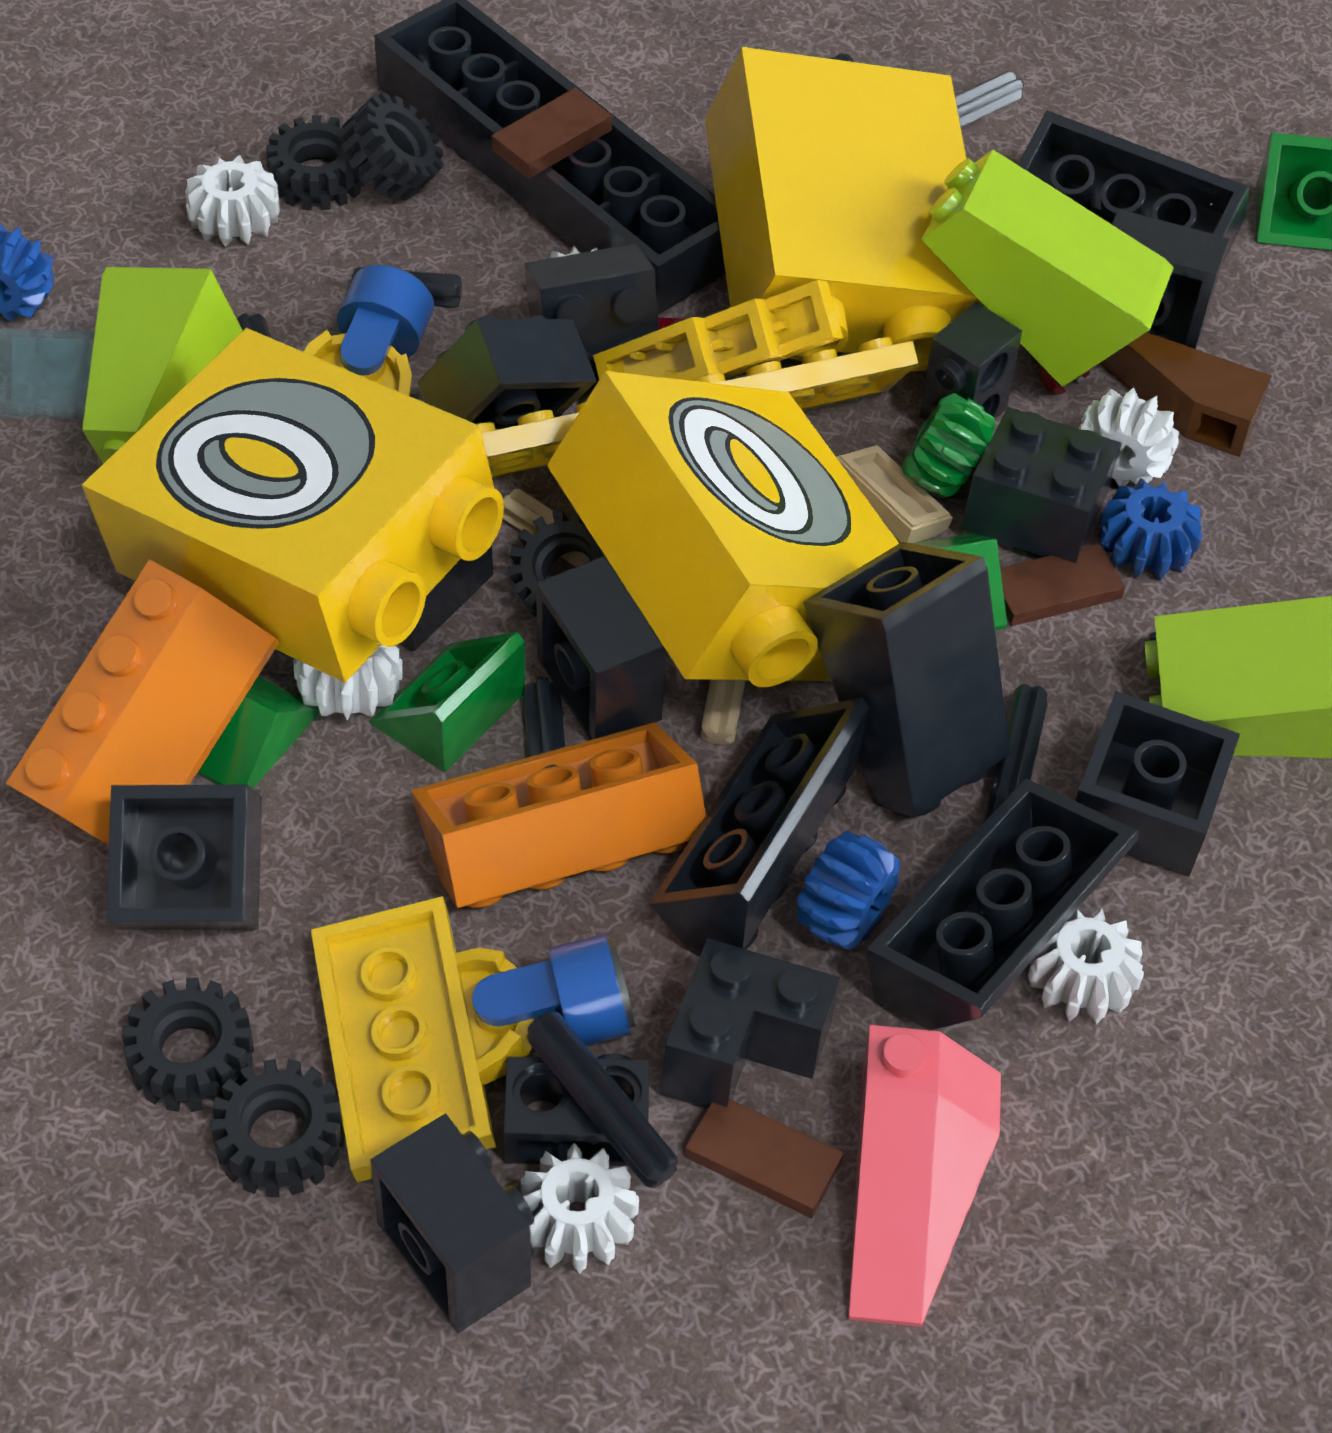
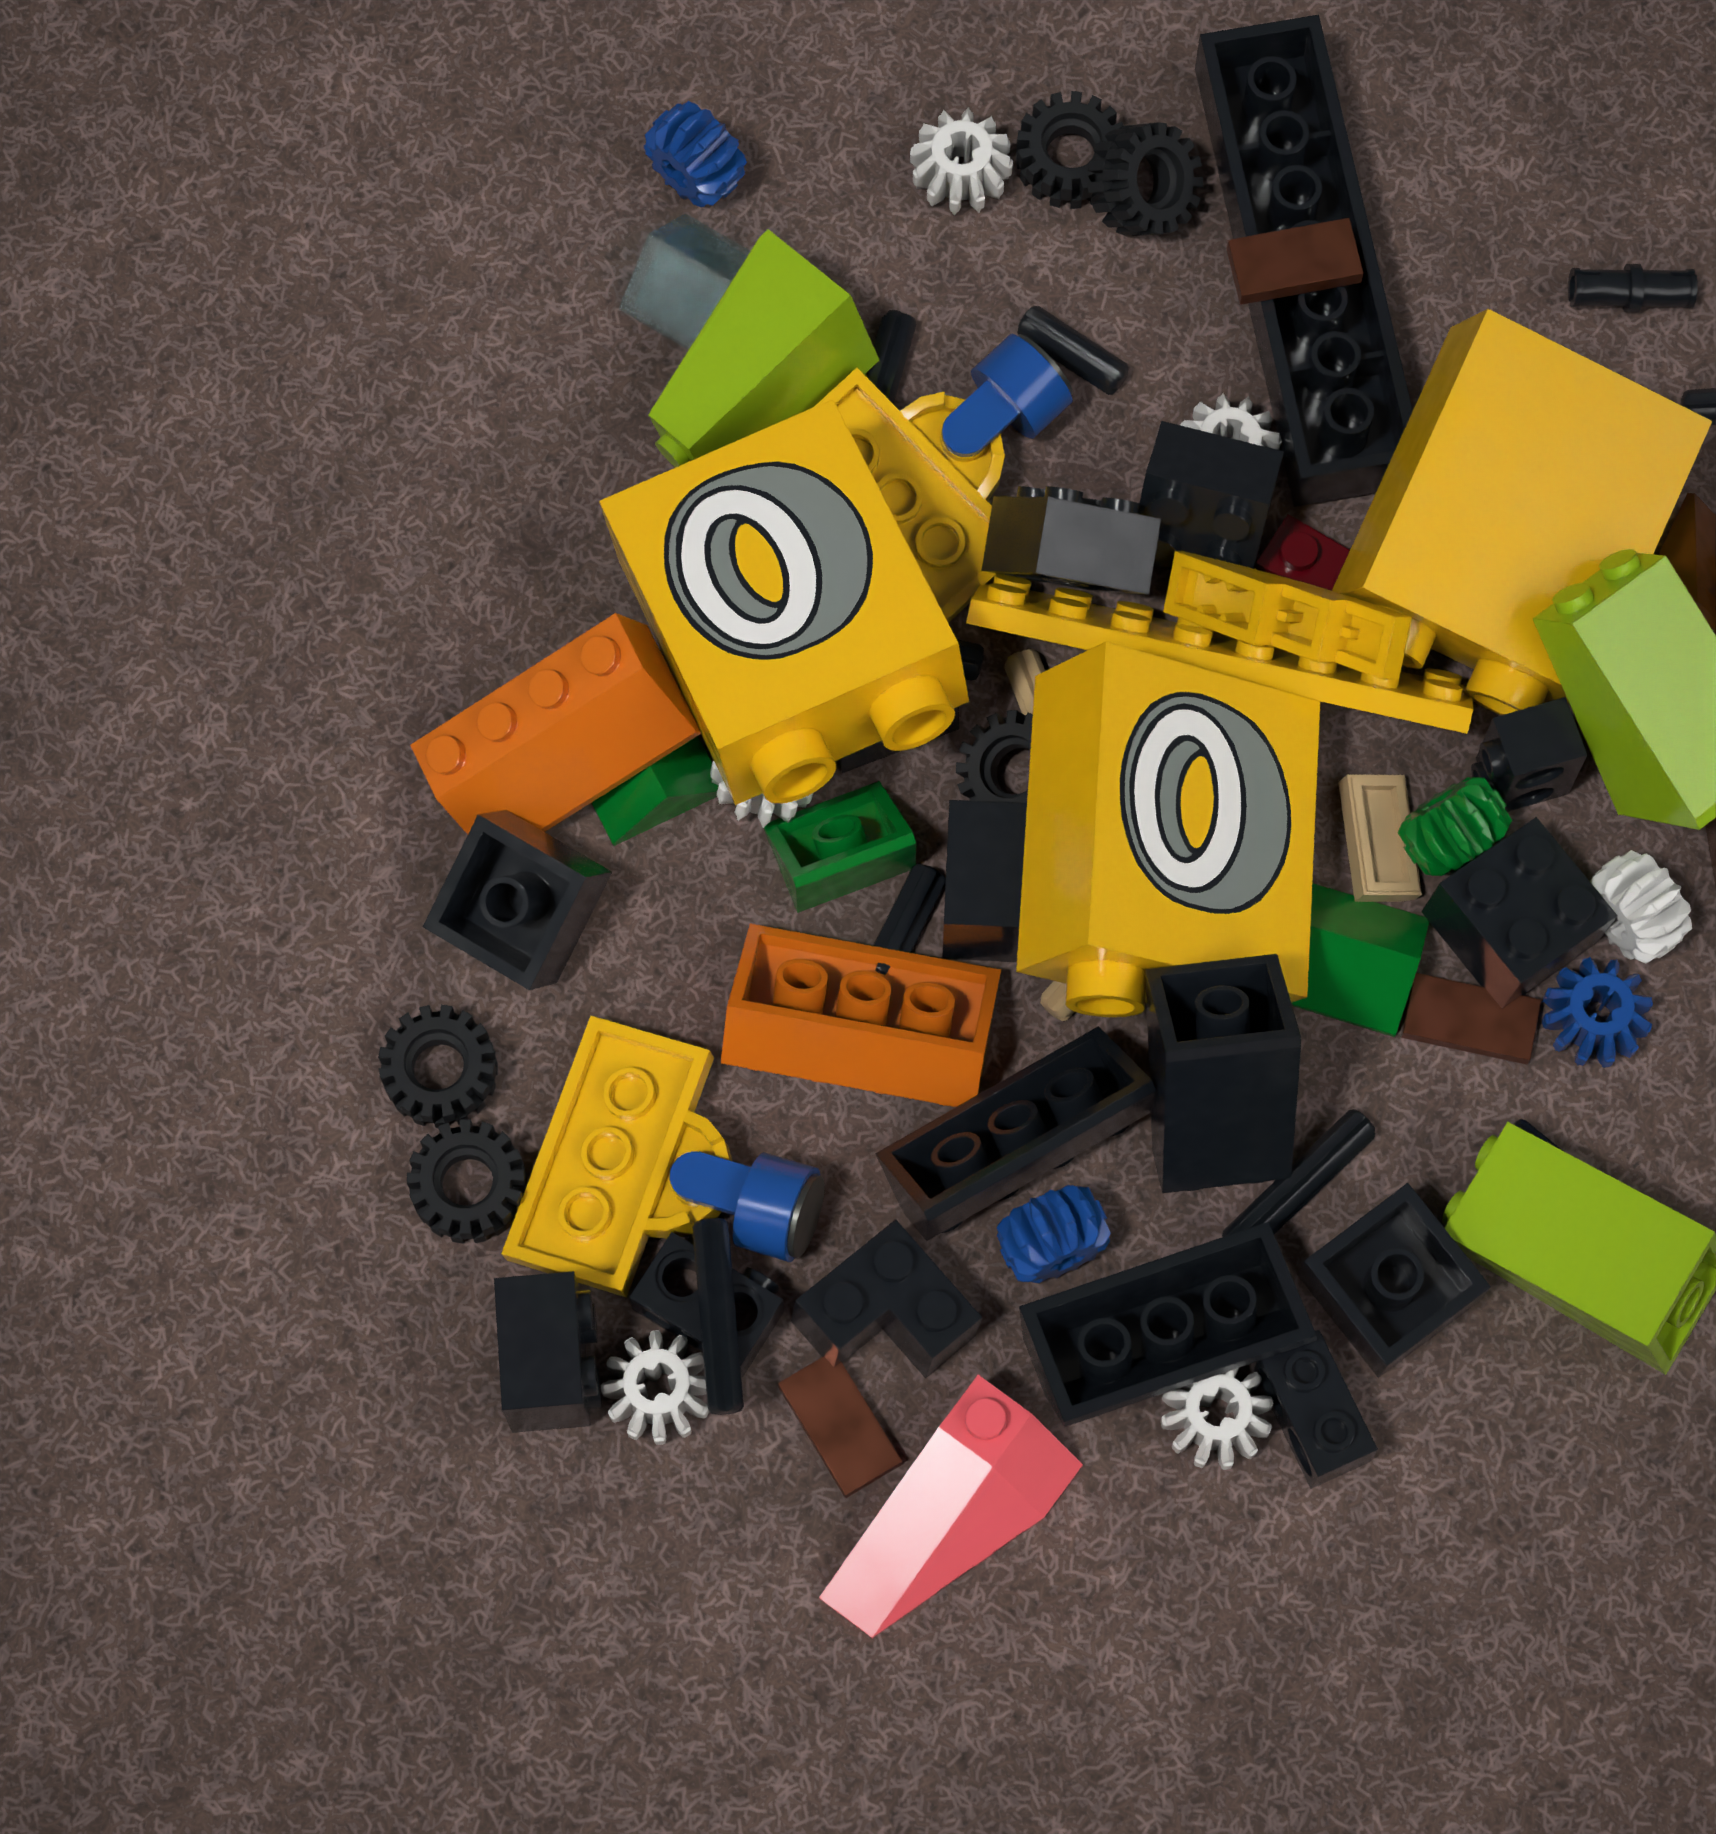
camera: 35 degrees right, 20 degrees up
(1174, 914) = (1316, 1411): none -> black brick

